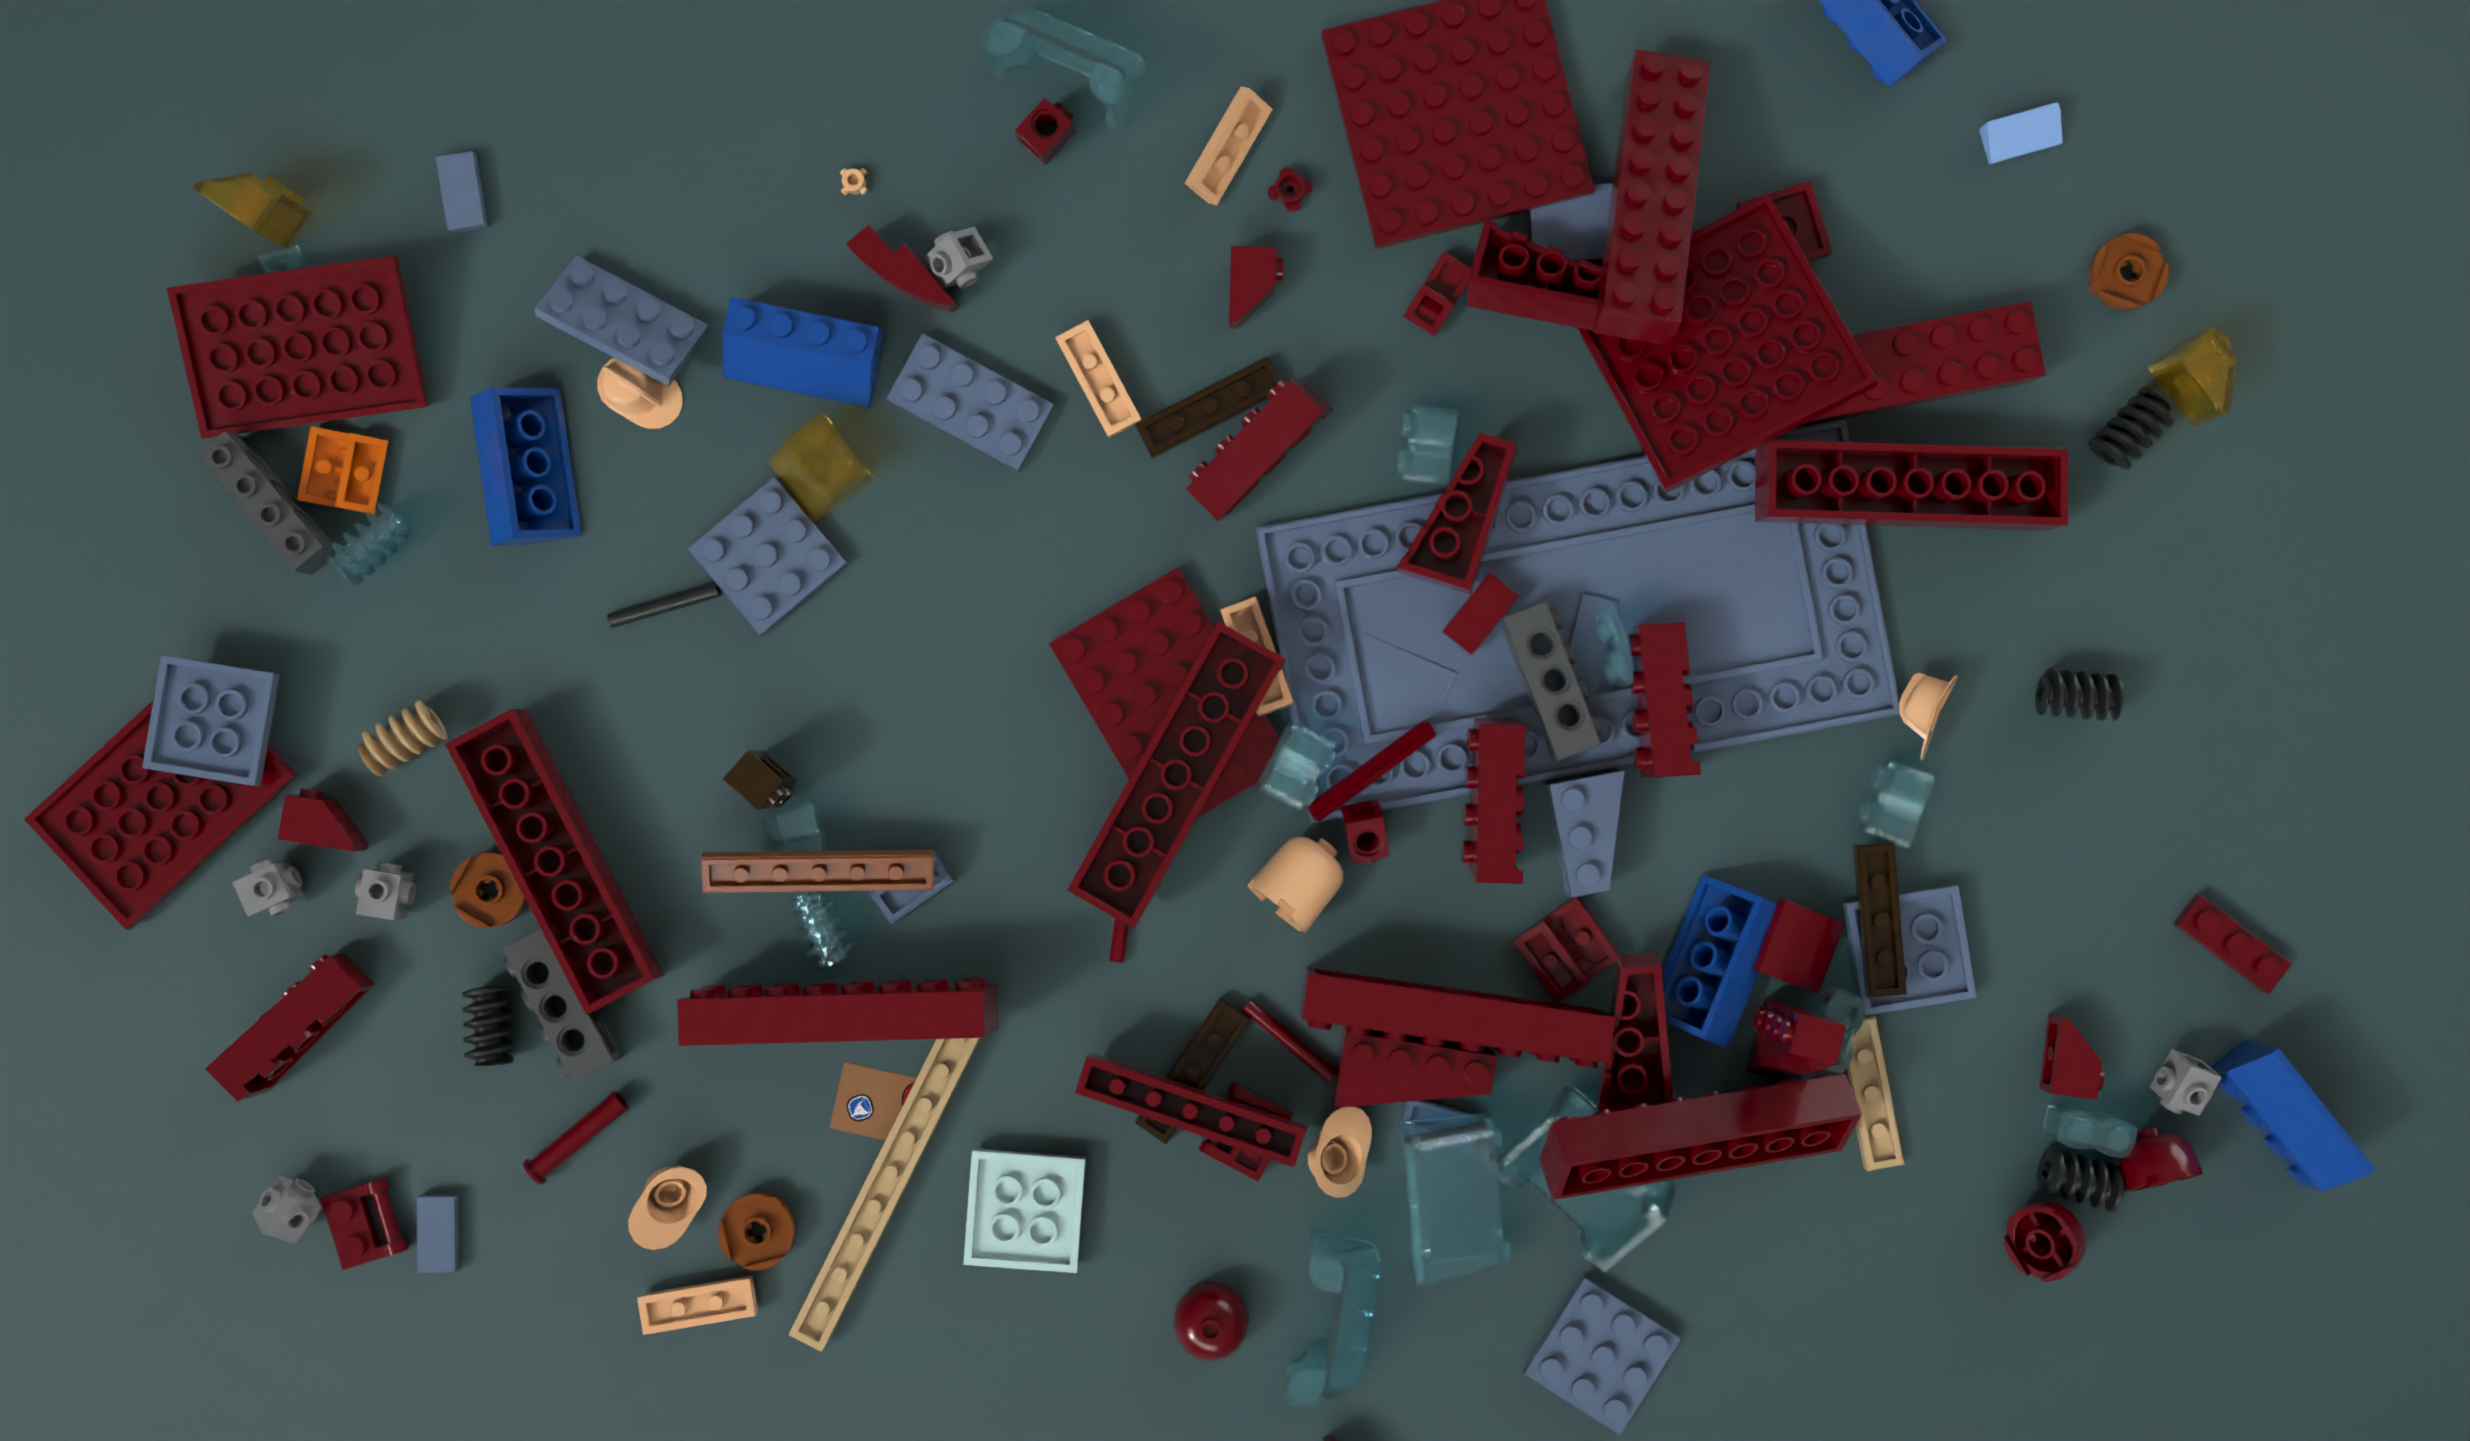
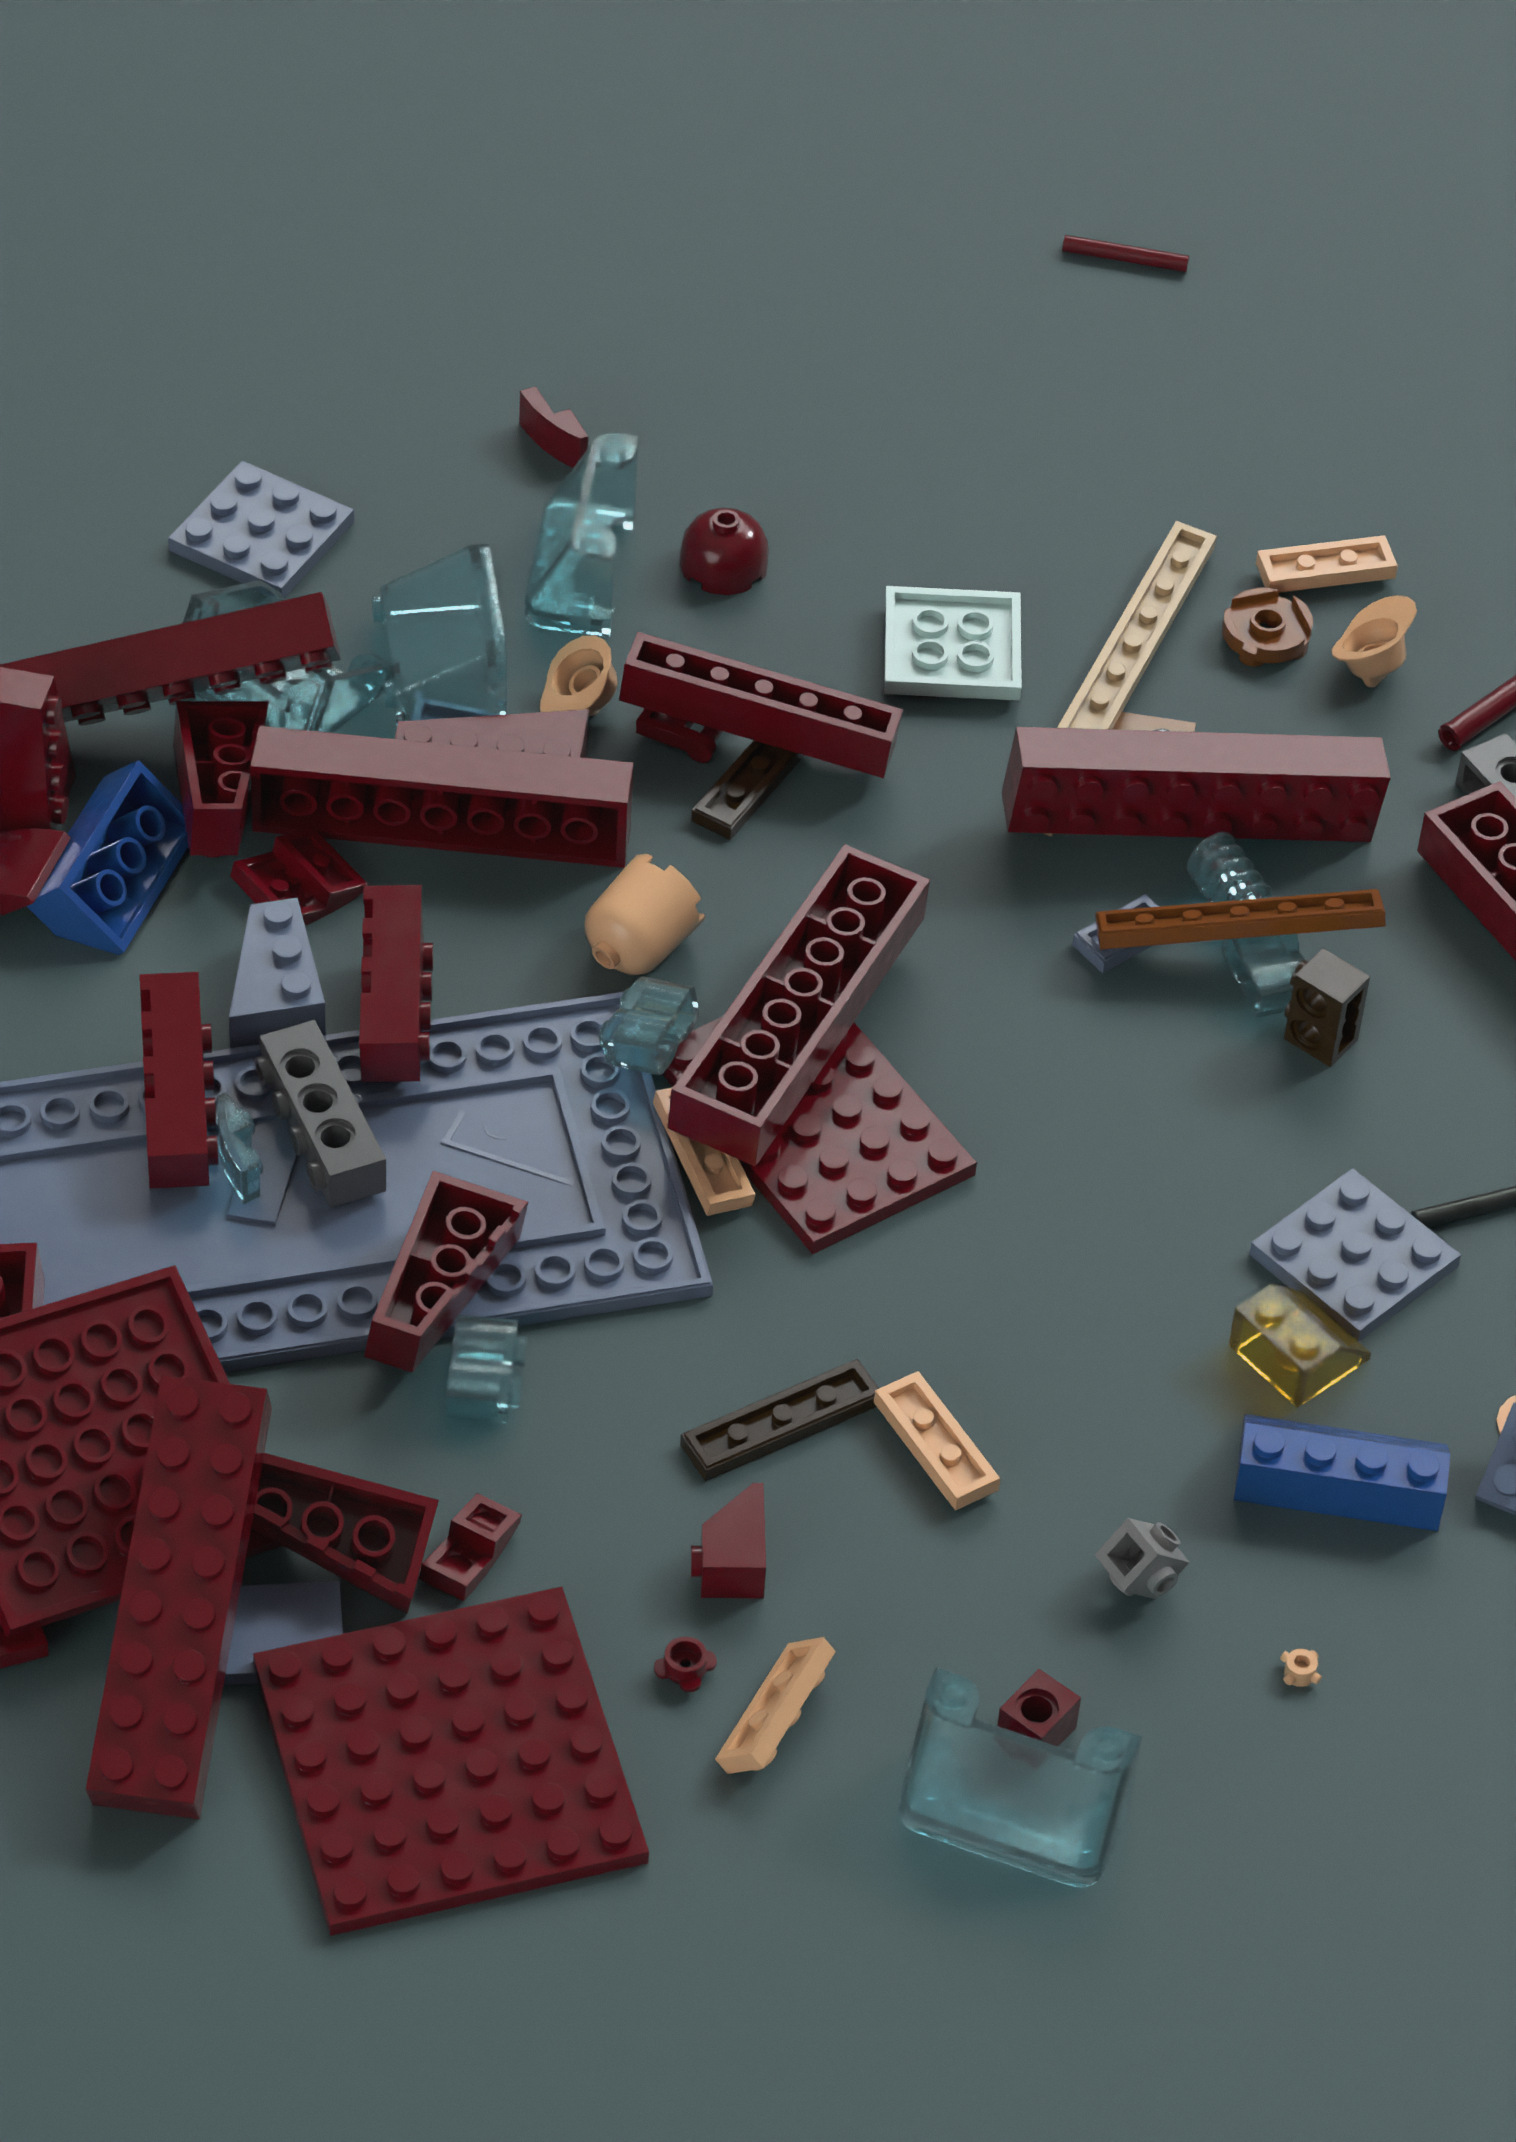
camera: 170 degrees right, 40 degrees down
(899, 270) = (1226, 1554): dark red slope -> none
(970, 402) = (1107, 1420): sand blue plate -> none
(1257, 446) = (707, 1360): dark red wedge -> none
(1289, 1040) = (665, 809): dark red bar -> none
(1365, 818) = (558, 972): dark red brick -> none
(1371, 770) = (548, 1033): dark red axle -> none
(1480, 613) = (399, 1195): dark red tile -> none

